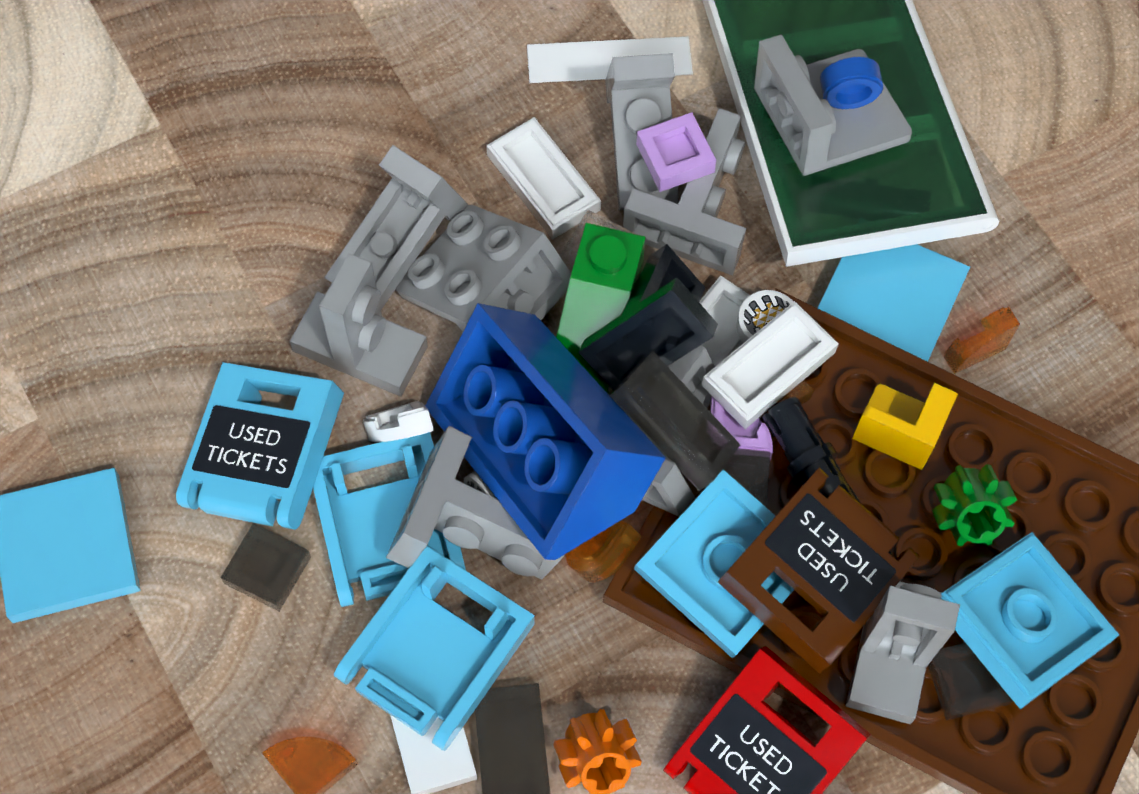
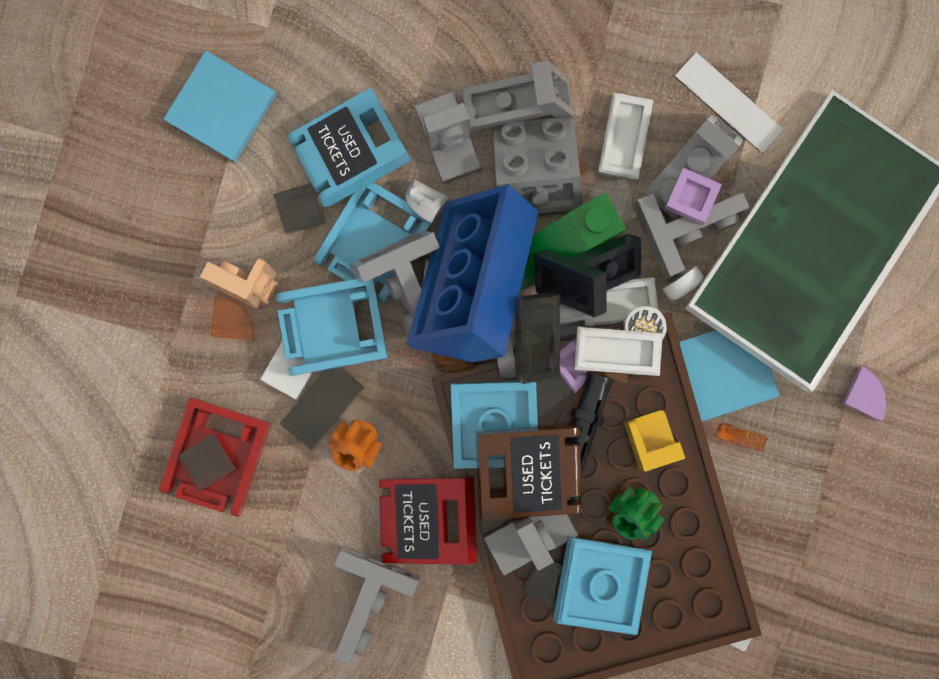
camera: 50 degrees right, 20 degrees up
(281, 703) = (233, 281): none -> light nougat bracket
(756, 251) = (683, 283): none -> white tile
(809, 126) = (795, 250): light grey bracket -> none
(851, 82) = (814, 252): blue tile -> none
(1046, 190) = (866, 395): none -> lavender tile

